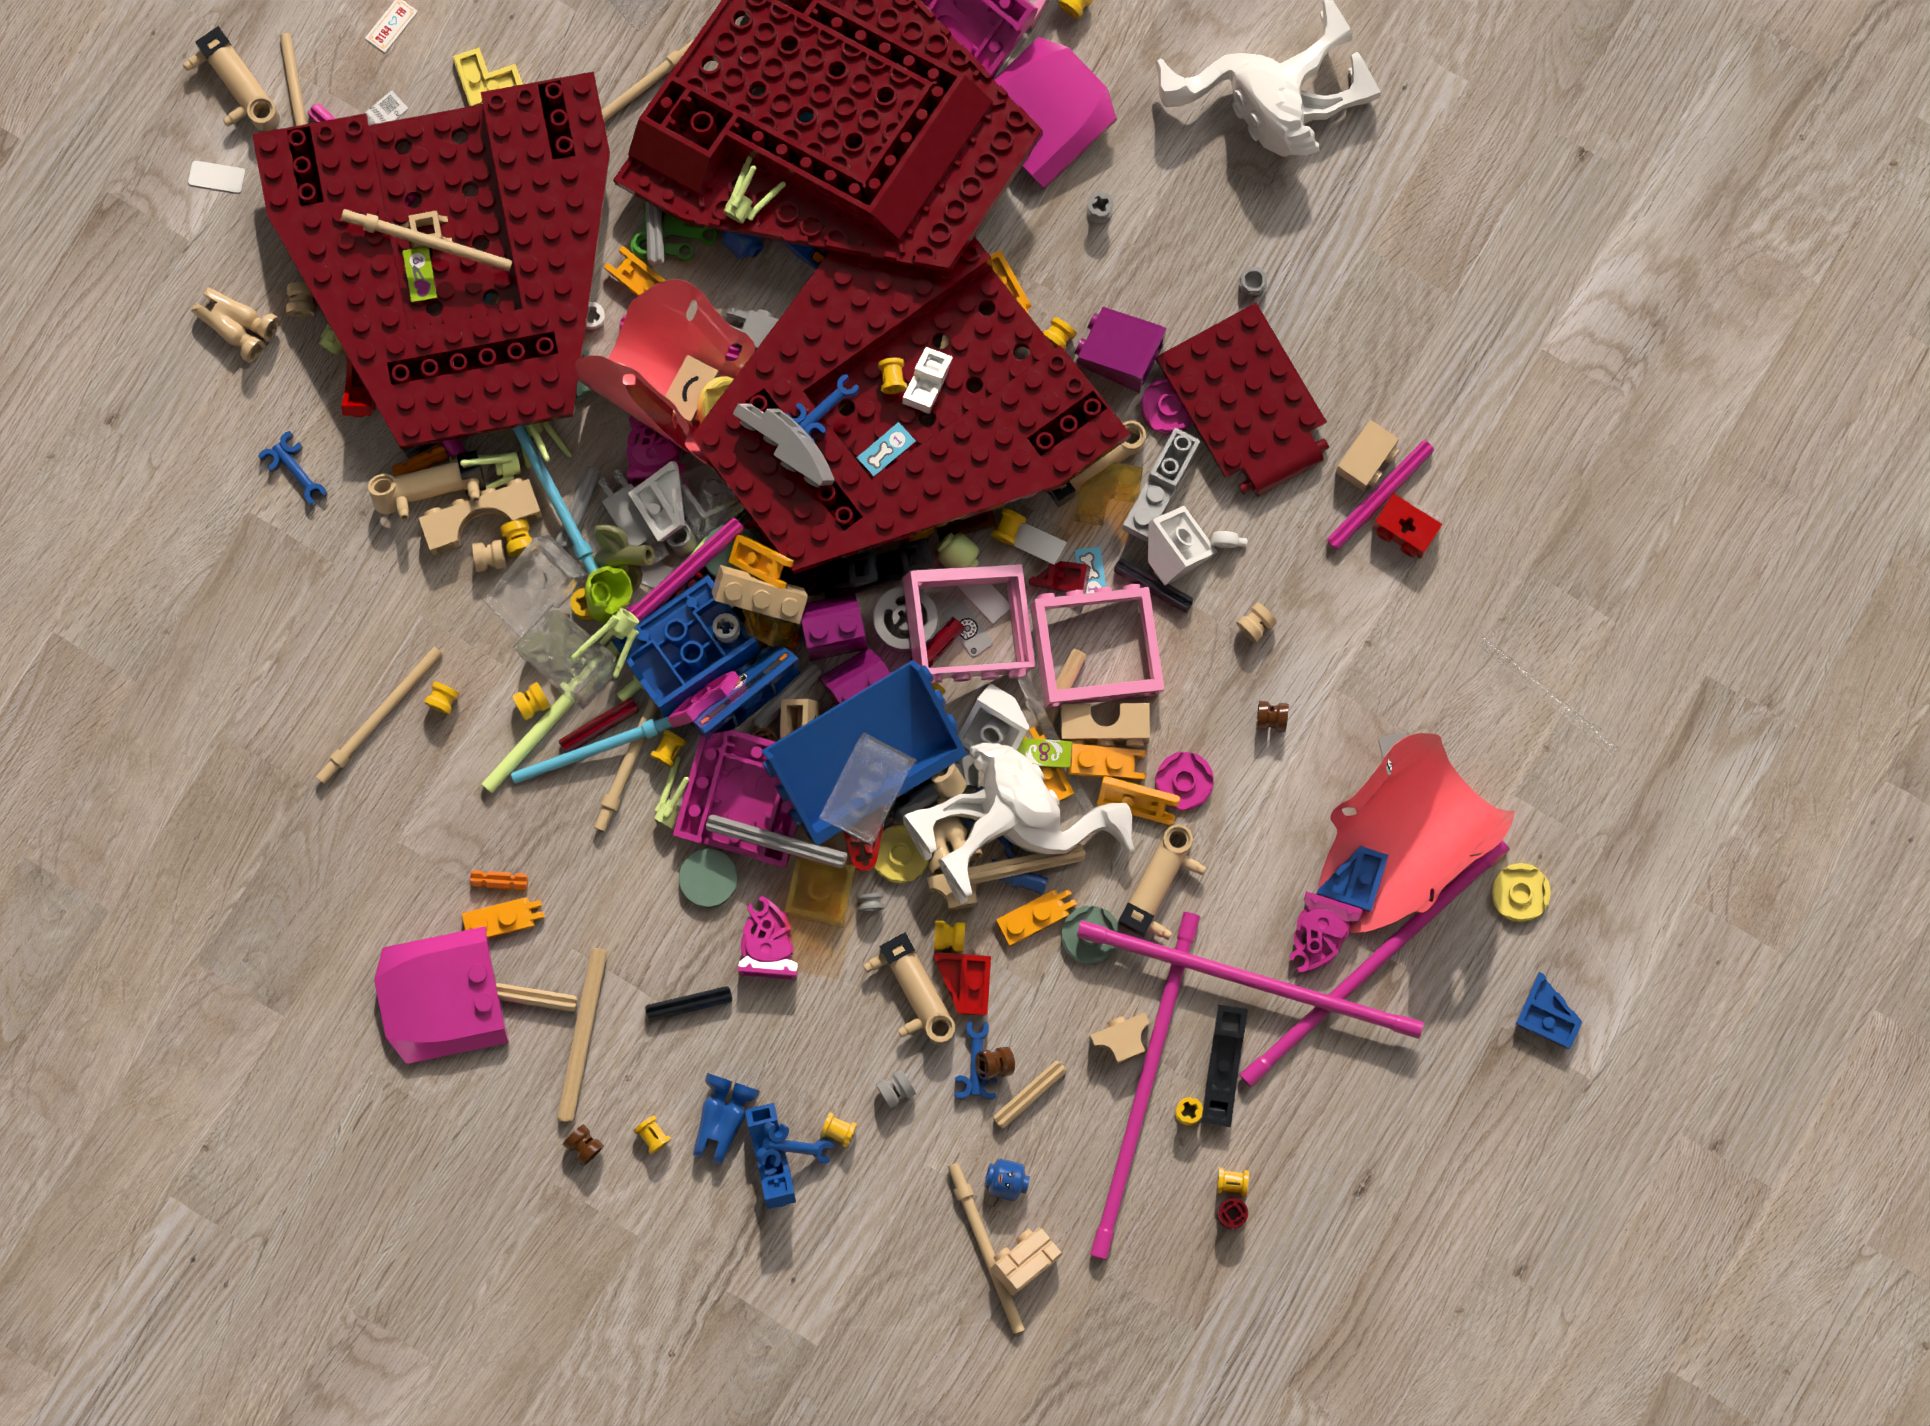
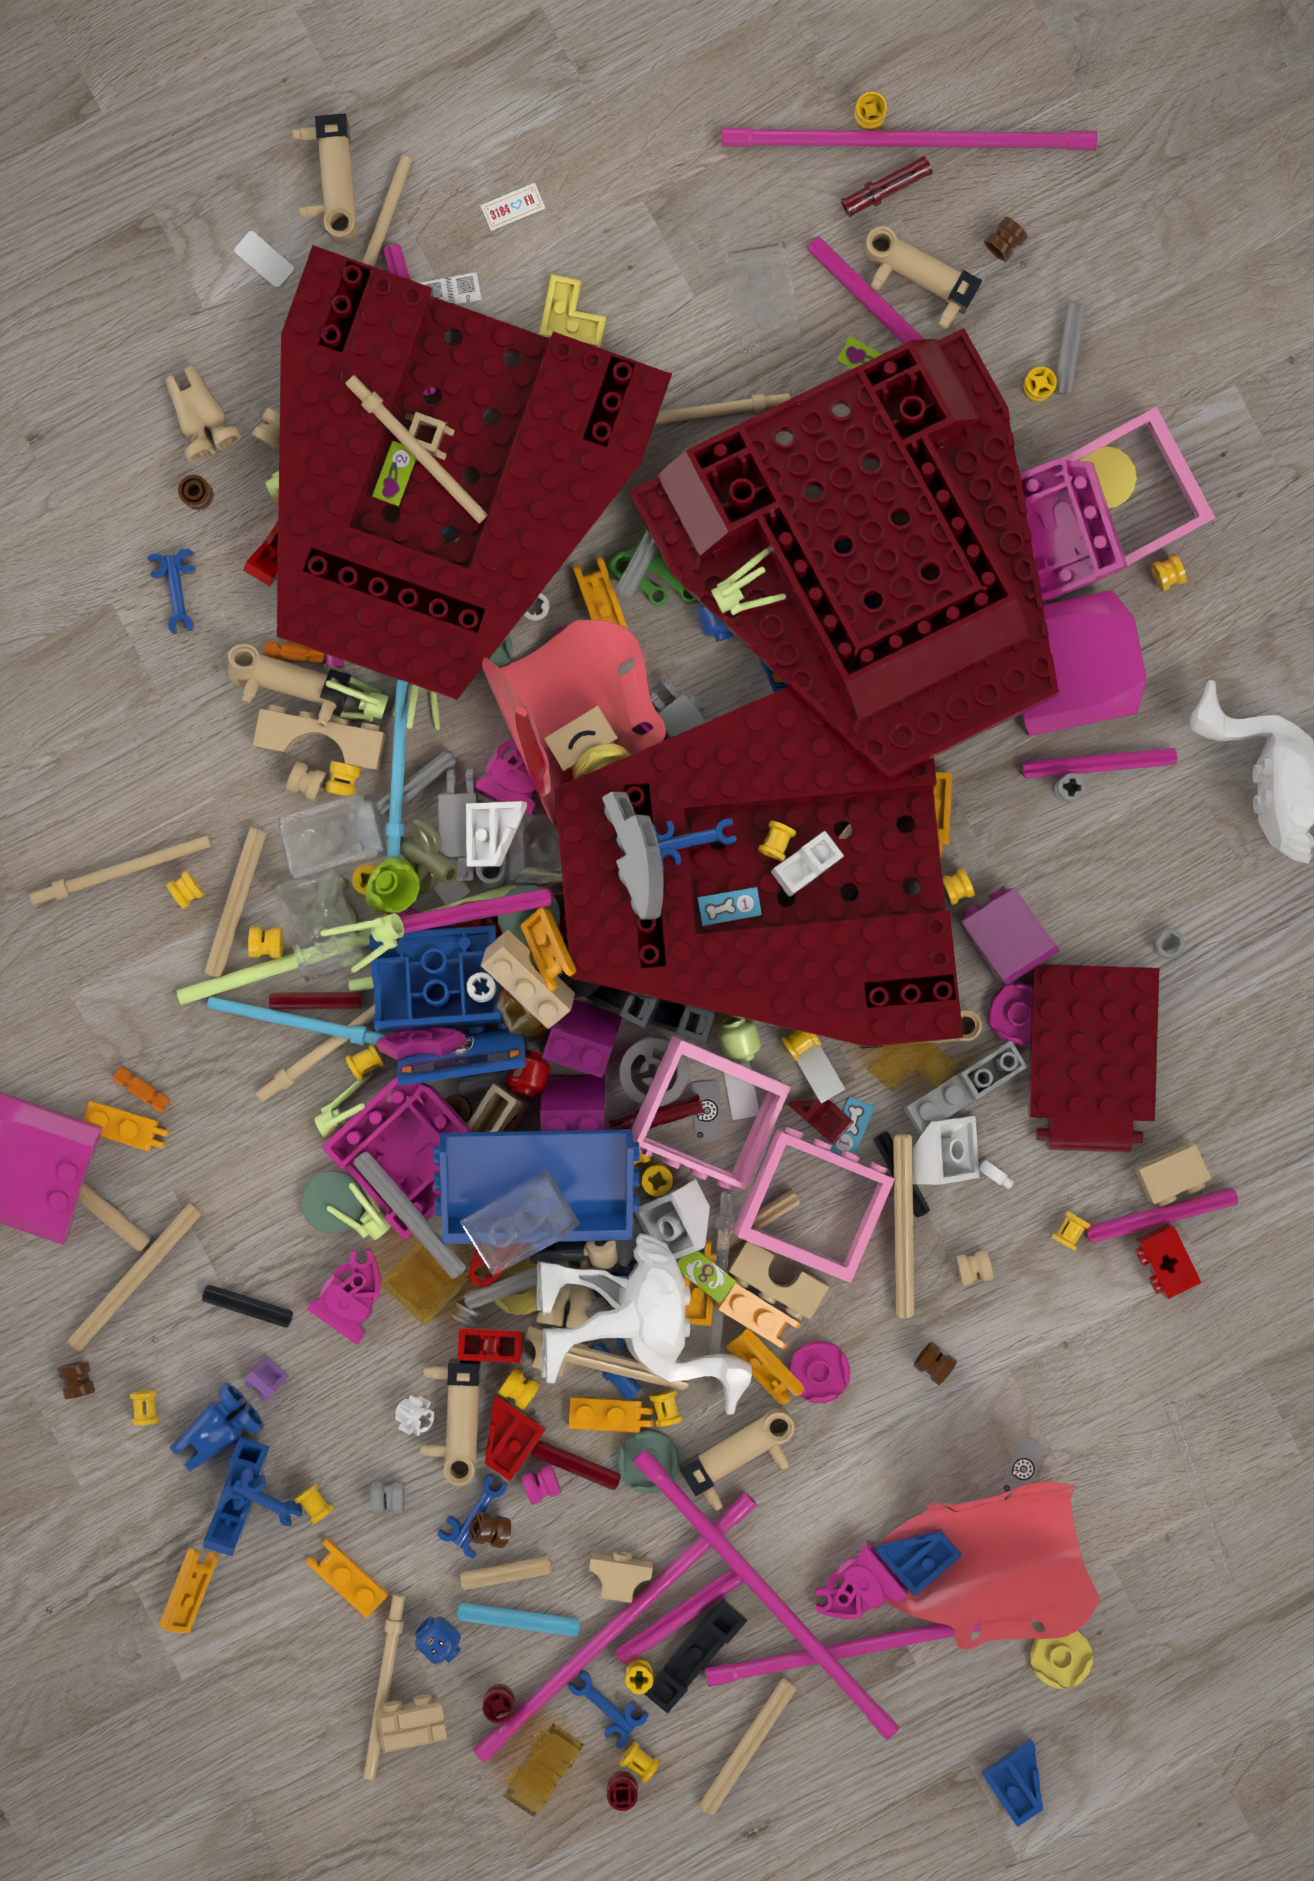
camera: 30 degrees right, 10 degrees up
(272, 386) = (201, 495): none -> reddish brown wheel
(487, 686) = (235, 902): none -> tan axle
(738, 1050) = (266, 1378): none -> medium lavender tile
(751, 871) = (372, 1219): none -> yellowish green plant
(778, 1264) = (188, 1592): none -> light orange hinge
(807, 679) = (529, 1079): none -> red head
(877, 1007) = (414, 1415): none -> white gear
(886, 862) = (501, 1288): none -> light grey axle
(904, 1177) = (348, 1579): none -> light orange hinge
(906, 912) = (490, 1345): none -> red brick
(962, 708) = (658, 1175): none -> yellow wheel
(1015, 1003) = (548, 1481): none -> dark pink wheel
(1034, 972) = (576, 1465): none -> dark red axle
(1063, 1126) = (518, 1619): none -> medium azure axle
(1068, 878) = (666, 1407): none -> yellow bush
(1090, 1199) = (497, 1710): none -> dark red wheel
(1112, 176) = (1099, 763): none -> dark pink axle
(1156, 1234) = (547, 1762): none -> clear yellow brick
(1180, 622) = (903, 1226): none -> tan axle
(1192, 1043) = (678, 1616): none -> dark pink axle
(1200, 1159) = (623, 1723): none -> blue bar
(1313, 1116) = (747, 1746): none -> tan axle
(1315, 548) = (1070, 1230): none -> yellow bush

